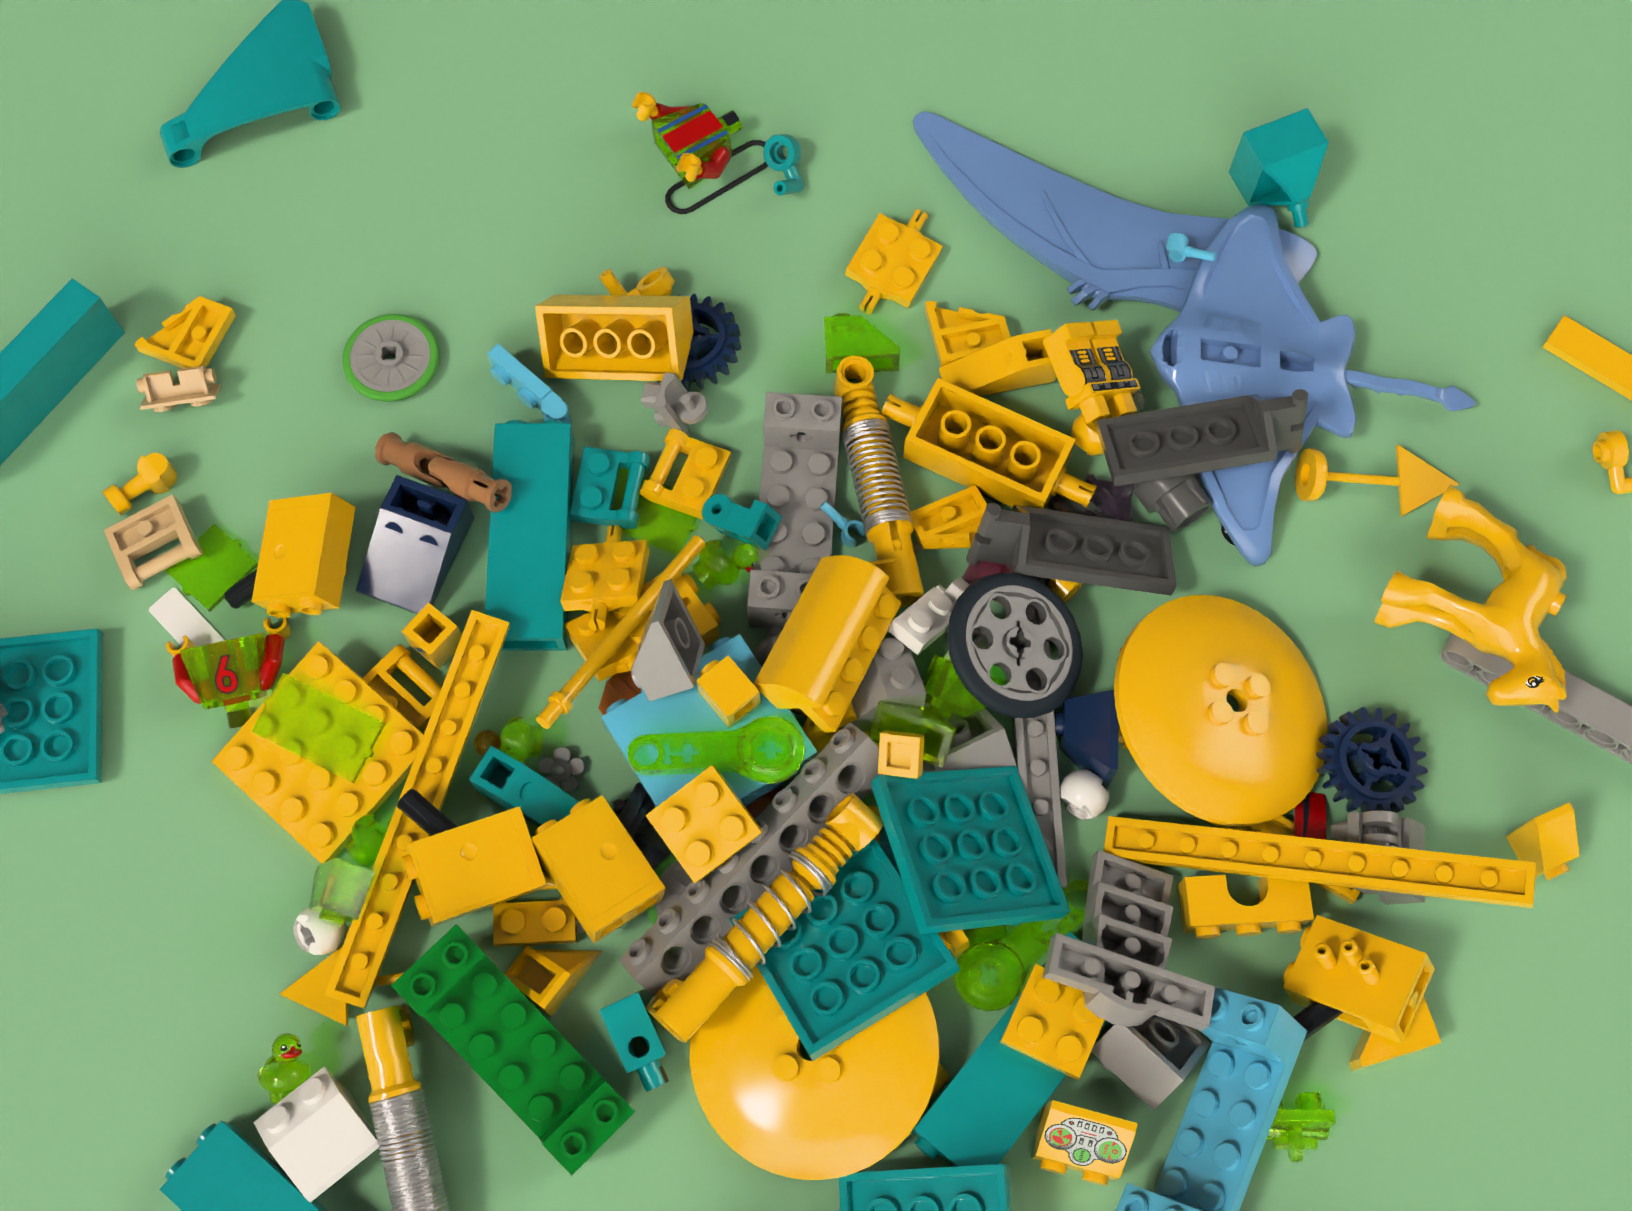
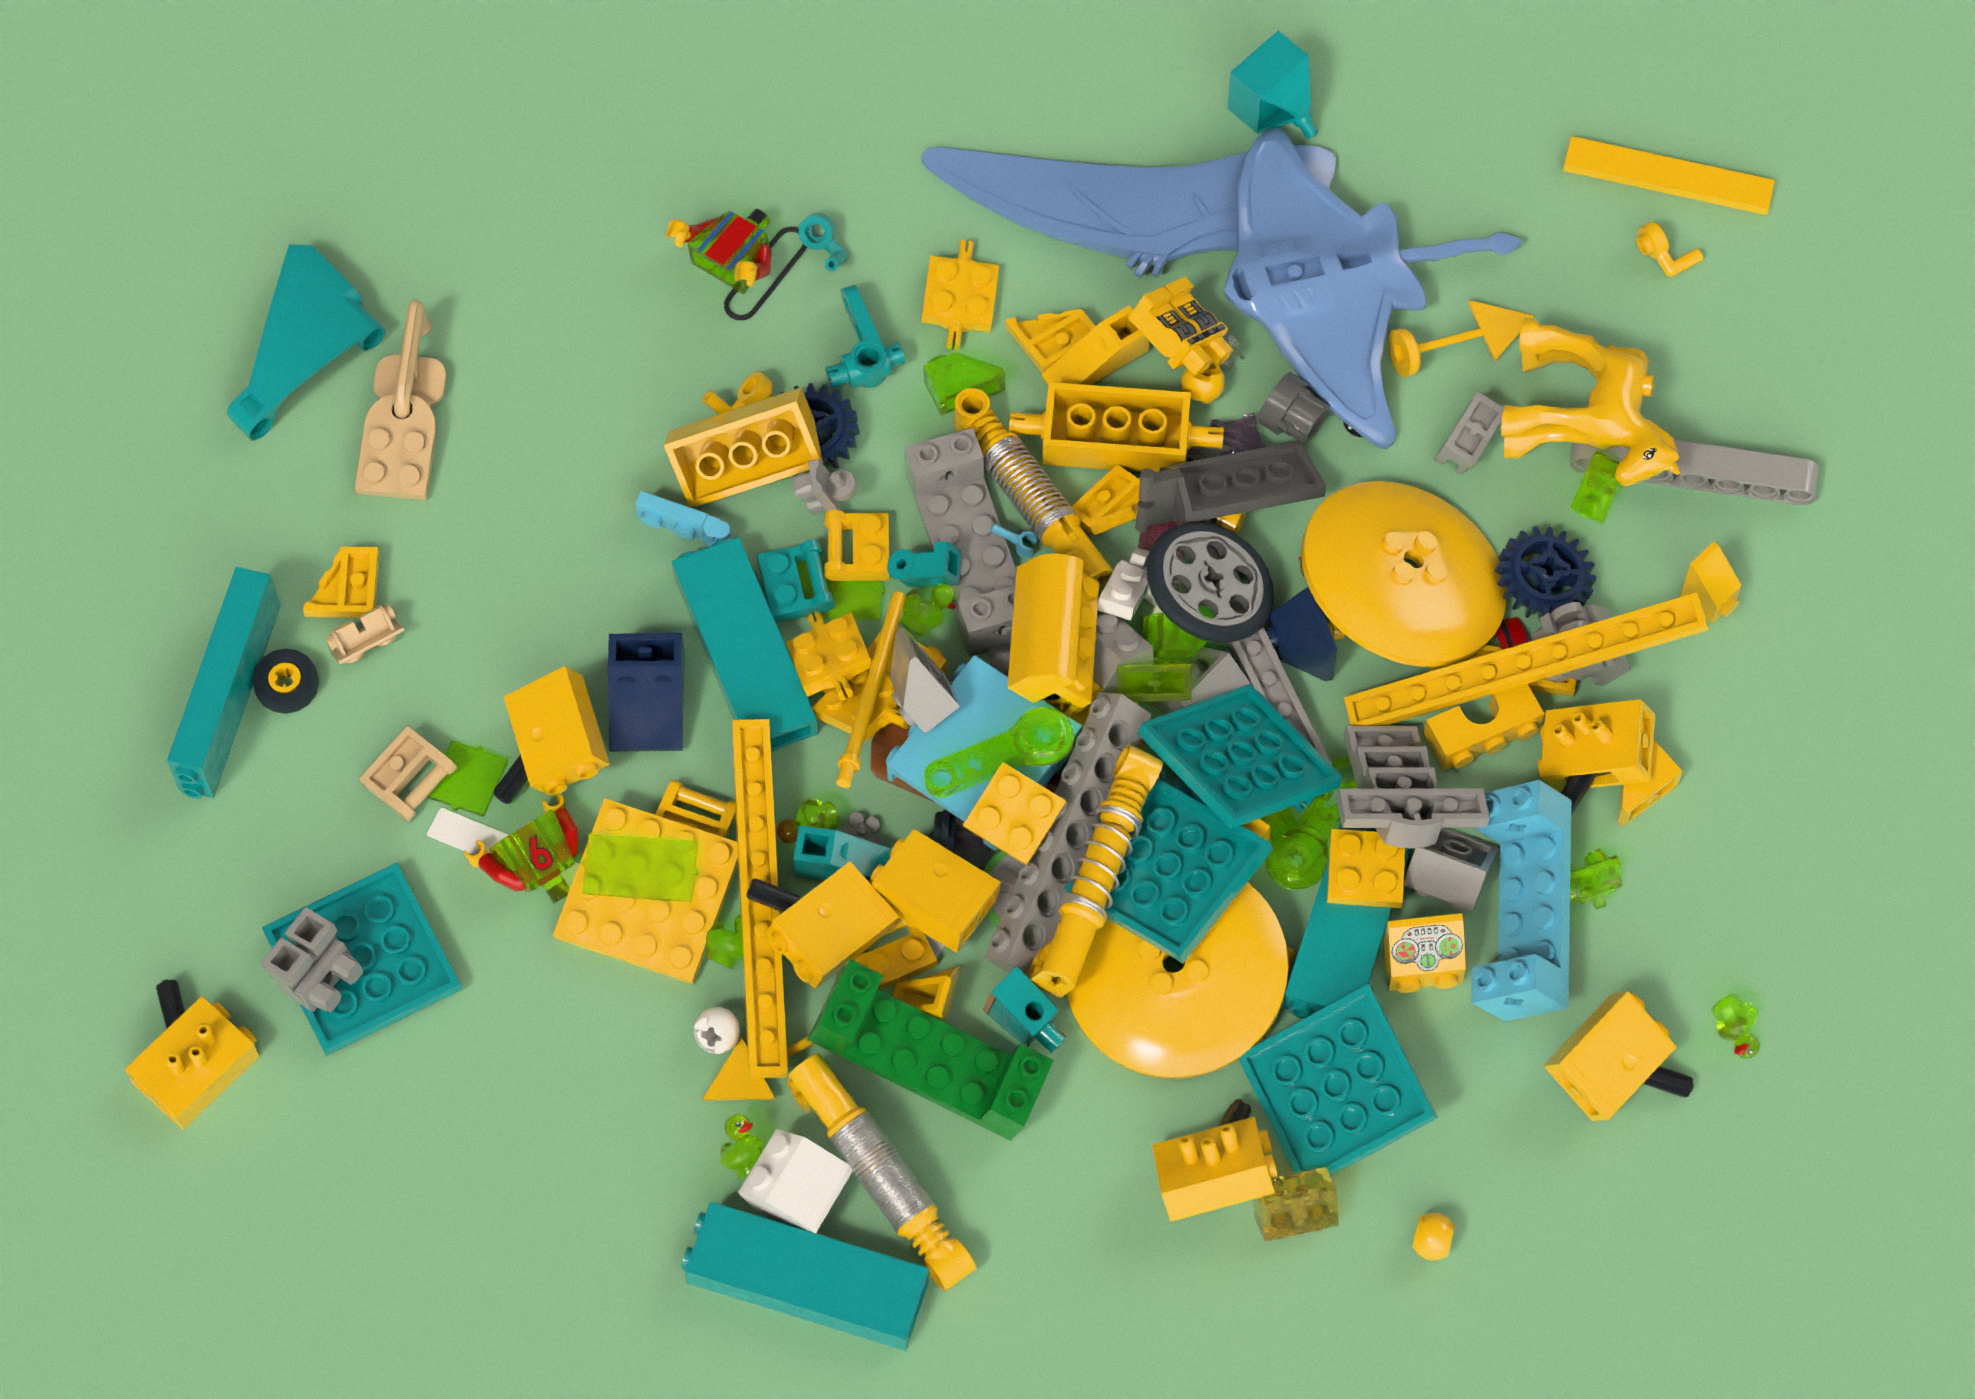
camera: 20 degrees left, 5 degrees down
(71, 406) = (285, 663): none -> black bush
(153, 474) = (378, 720): yellow leg -> none
(299, 224) = (401, 425): none -> tan plate
(339, 891) = (725, 984): clear neon green slope -> none
(385, 378) = (548, 559): light grey wheel -> none
(433, 635) = (701, 759): yellow brick -> none
(443, 471) = (648, 618): medium nougat piece -> none
(727, 690) = (987, 701): yellow brick -> none
(776, 283) = (868, 349): none -> teal piece
(901, 754) = (1154, 698): yellow tile -> none
(1084, 794) = (1316, 687): white piece -> none
(1178, 249) = (1213, 196): medium azure hand -> none
(1201, 437) = (1298, 351): dark grey hinge -> none
(1349, 583) = (1471, 433): none -> light grey hinge
(1460, 690) = (1597, 488): none -> clear neon green hips

